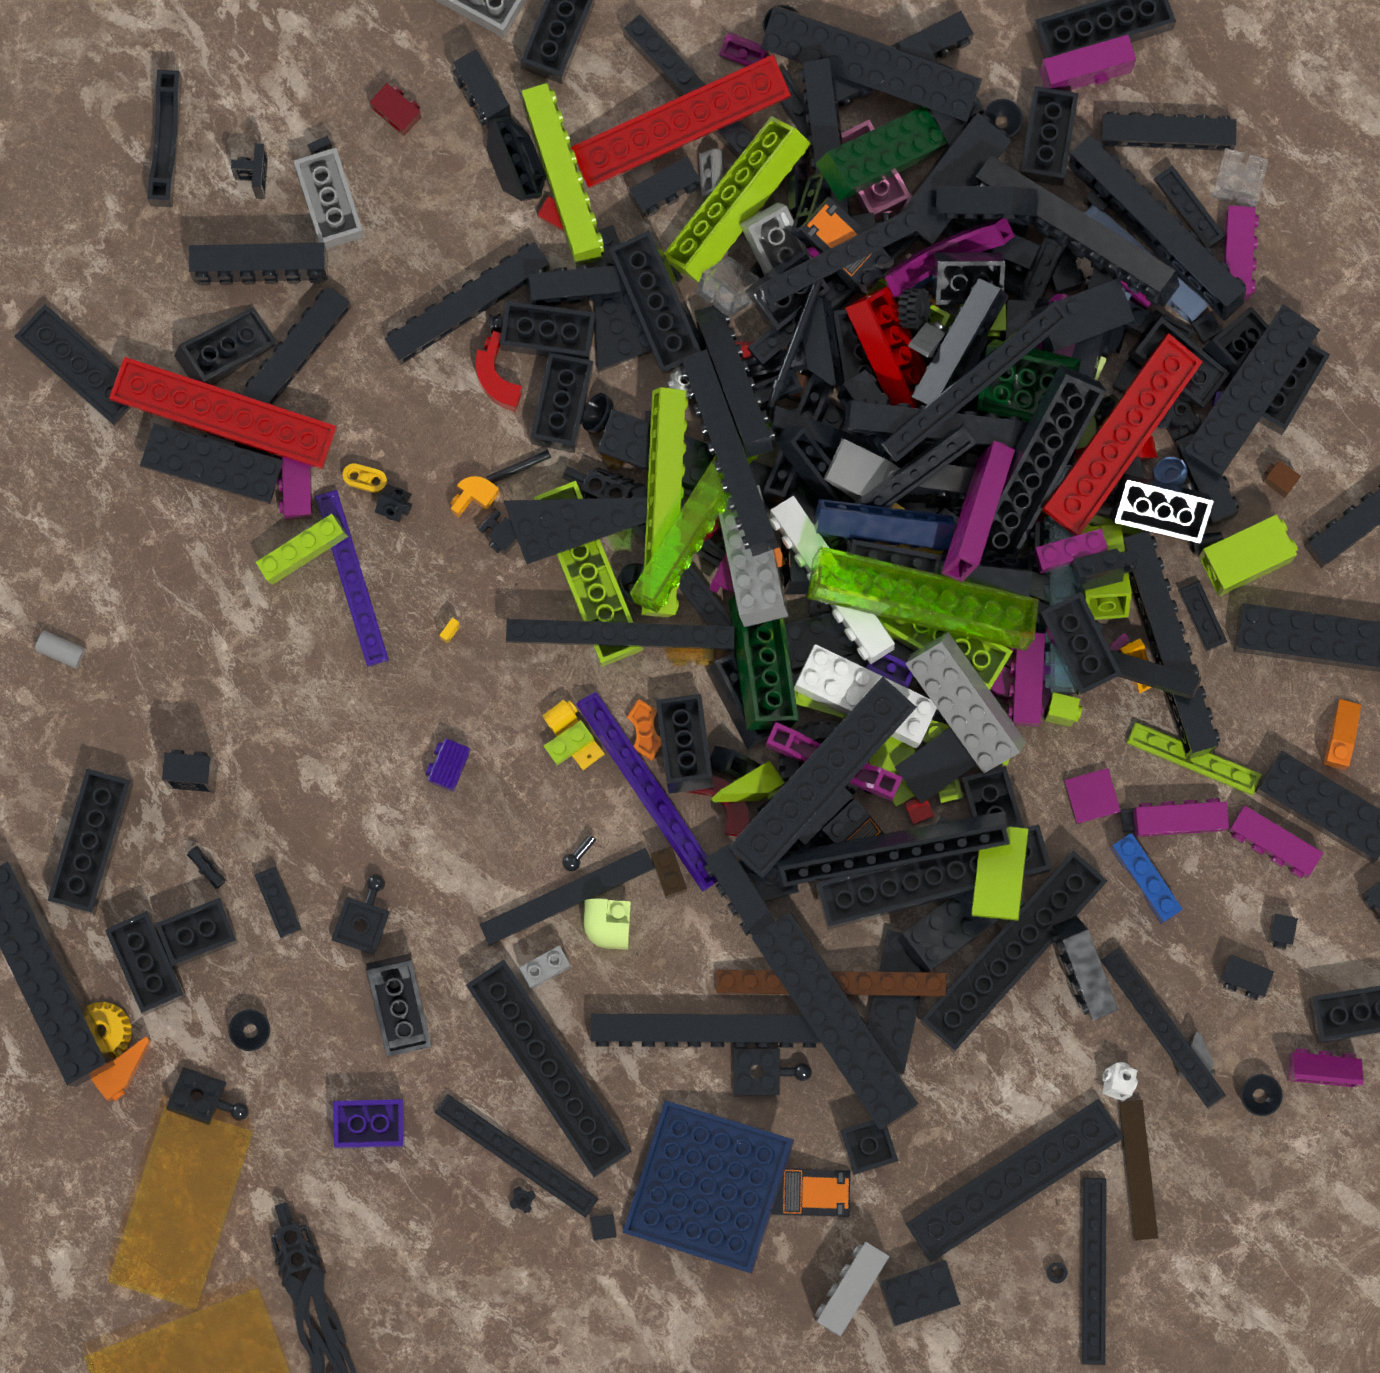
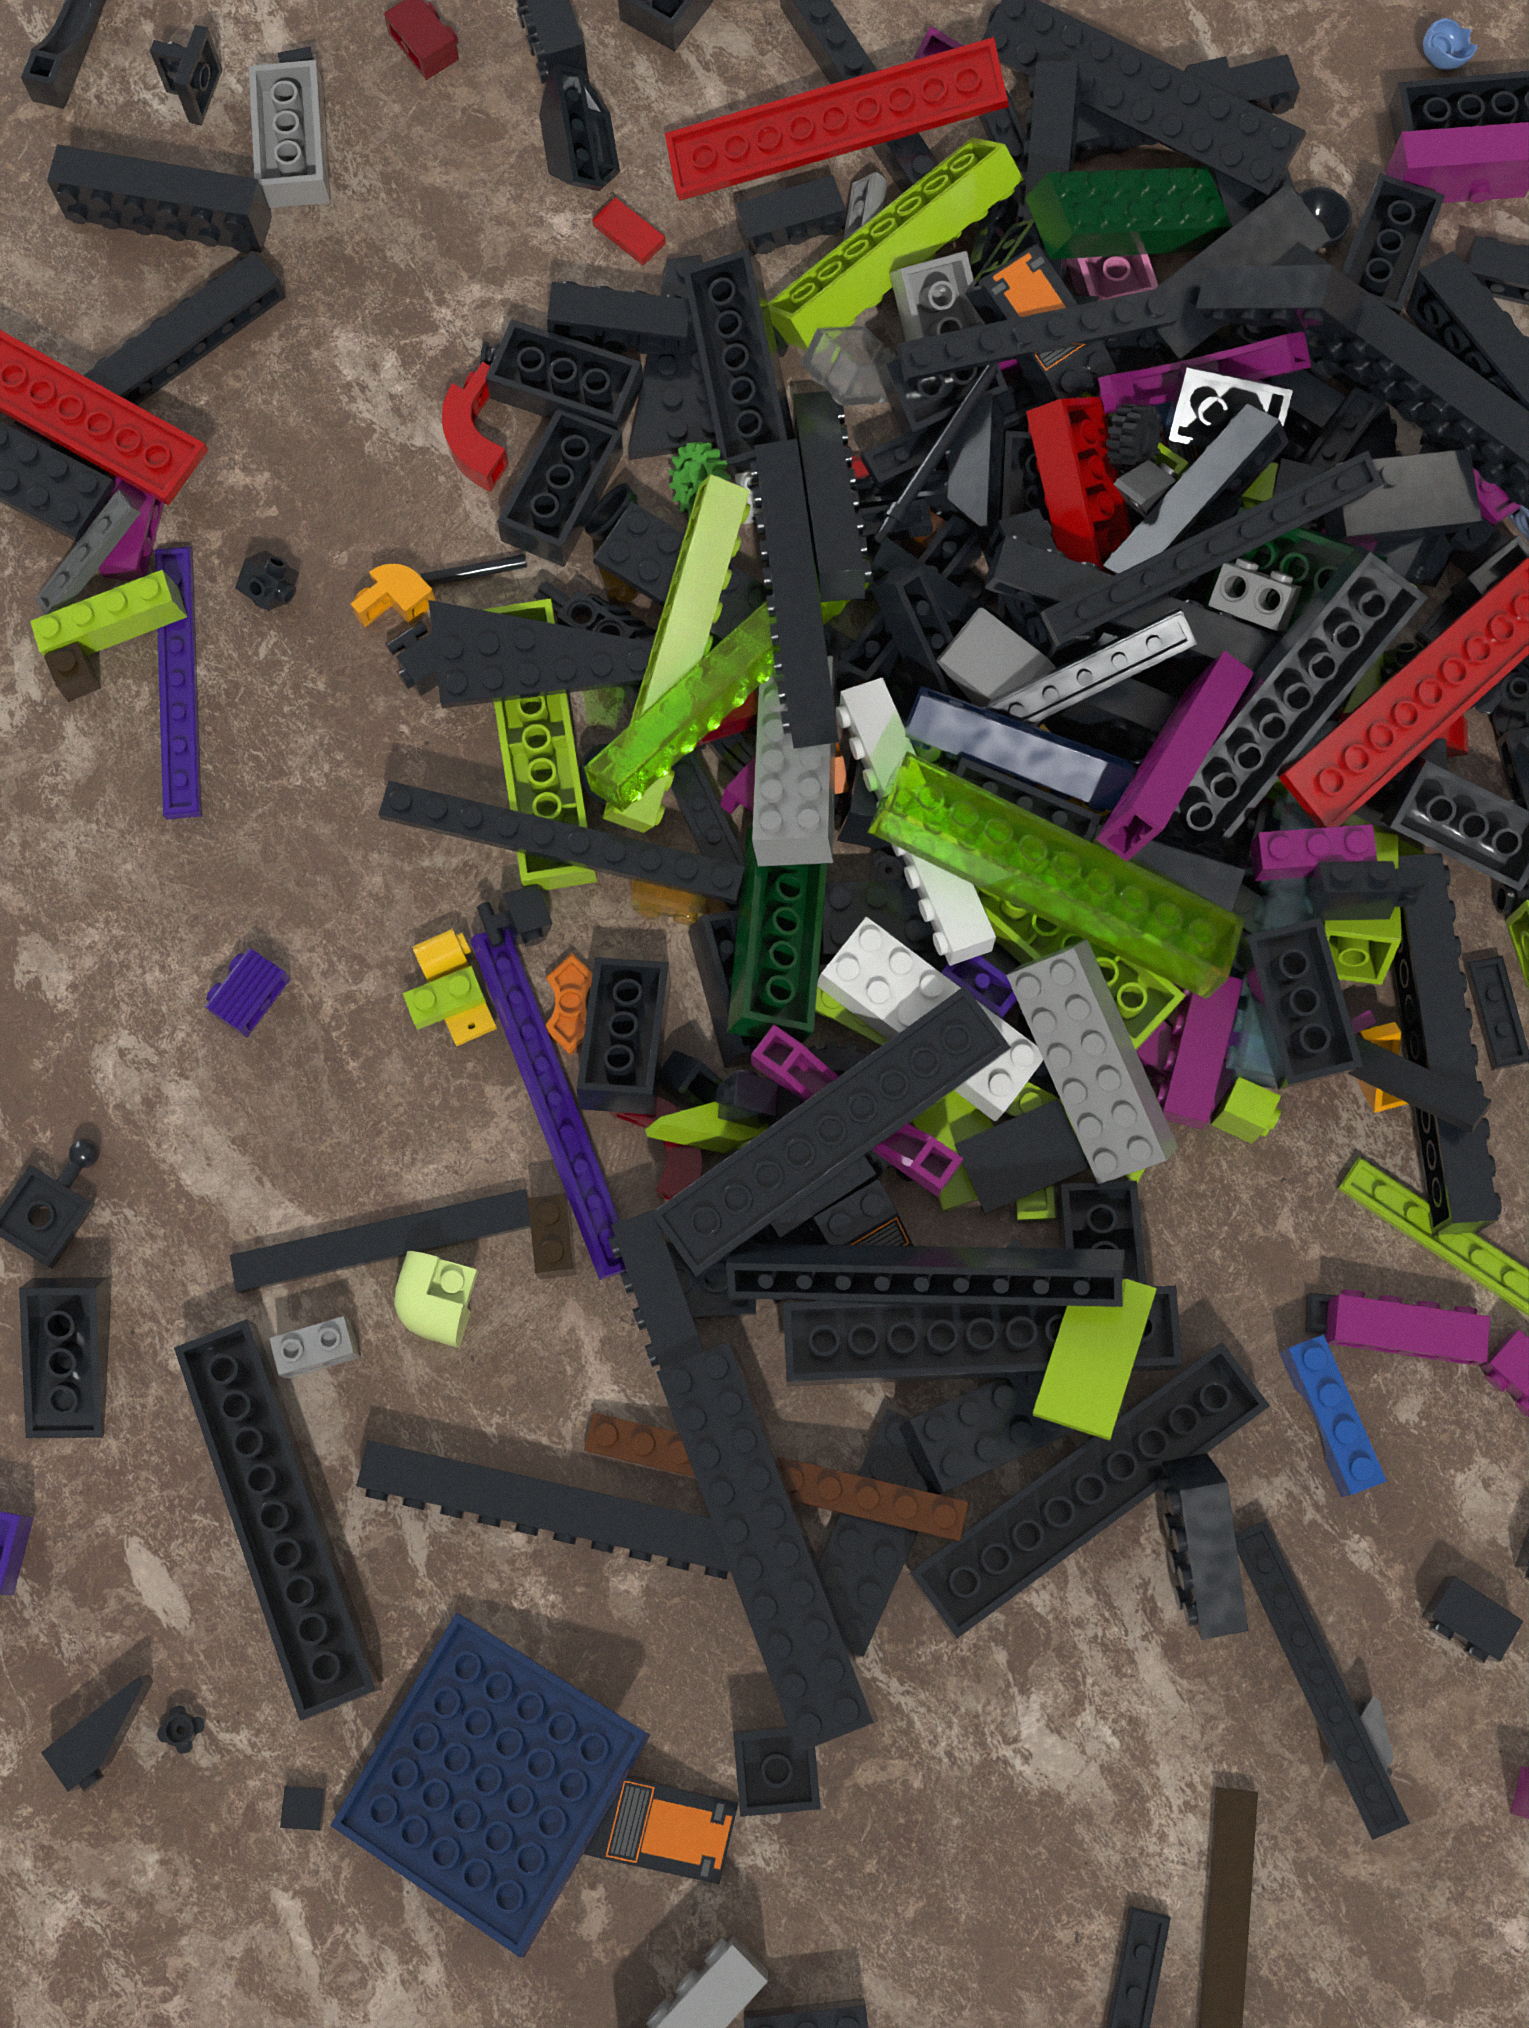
camera: 15 degrees right, 5 degrees down
(225, 347) = (79, 310): black slope -> none
(279, 512) = (88, 553): none -> dark grey tile
(287, 587) = (72, 672): none -> dark brown brick
(365, 478) = (239, 537): yellow plate -> none
(450, 630) = (303, 787): yellow tile -> none
(466, 303) = (446, 322): black brick -> none
(475, 1217) = (94, 1741): none -> black slope
(516, 1155) = (192, 1652): black tile -> none
(562, 176) = (642, 160): lime brick -> none
(572, 862) = (404, 1186): black bar -> none
(602, 681) = (521, 914): none -> black brick
(648, 380) = (692, 468): none -> bright green gear
(767, 767) = (747, 1099): none -> black brick
(770, 1081) = (645, 1587): black plate -> none
(917, 811) = (978, 1226): red tile -> none
(1006, 404) = (1253, 603): none -> light grey brick
(1014, 1180) = (1011, 1886): black plate -> none
(1092, 796) = (1266, 1261): magenta tile -> none
(1119, 1081) = (1225, 1752): white brick -> none
(1170, 471) = (1489, 774): medium blue hair -> none
(1273, 1095) = (1484, 1835): black piece -> none

